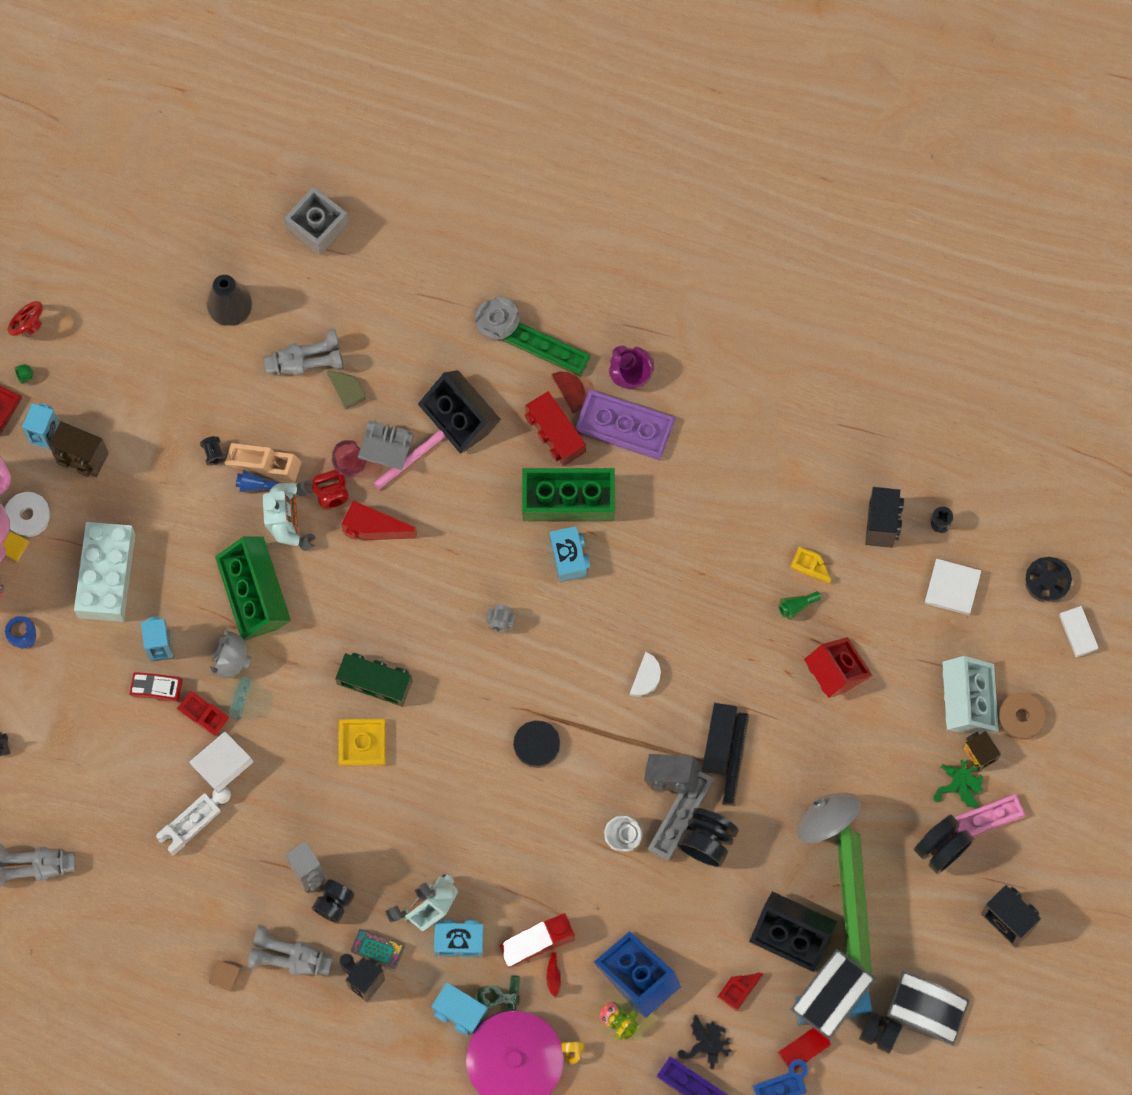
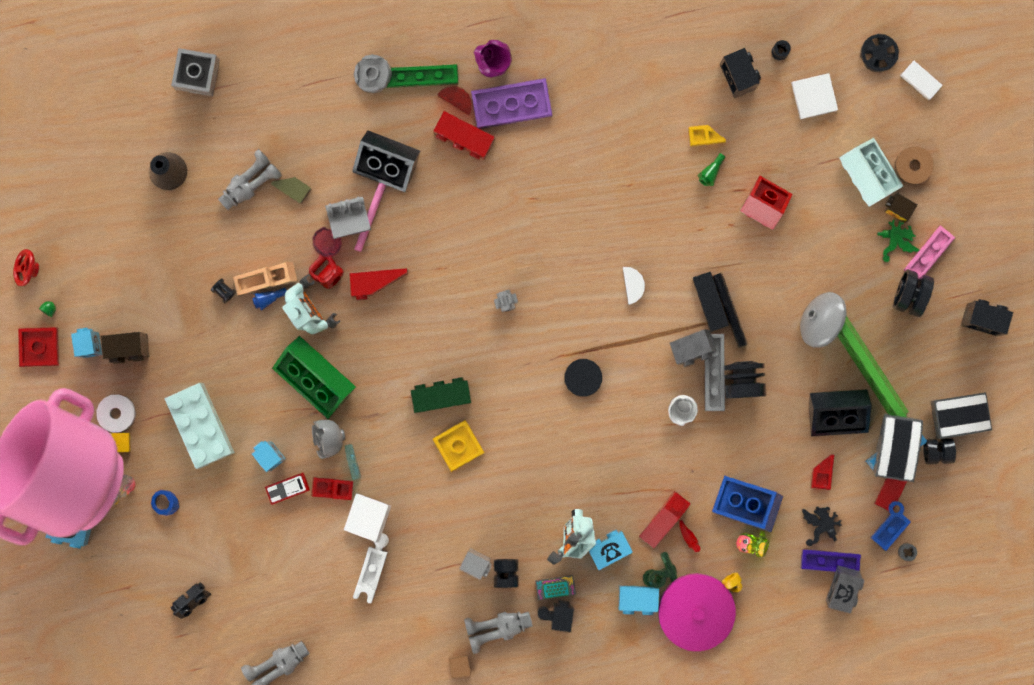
camera: 30 degrees left, 15 degrees up
(568, 494) = (502, 181): green brick -> none
(568, 553) = (527, 225): medium azure brick -> none

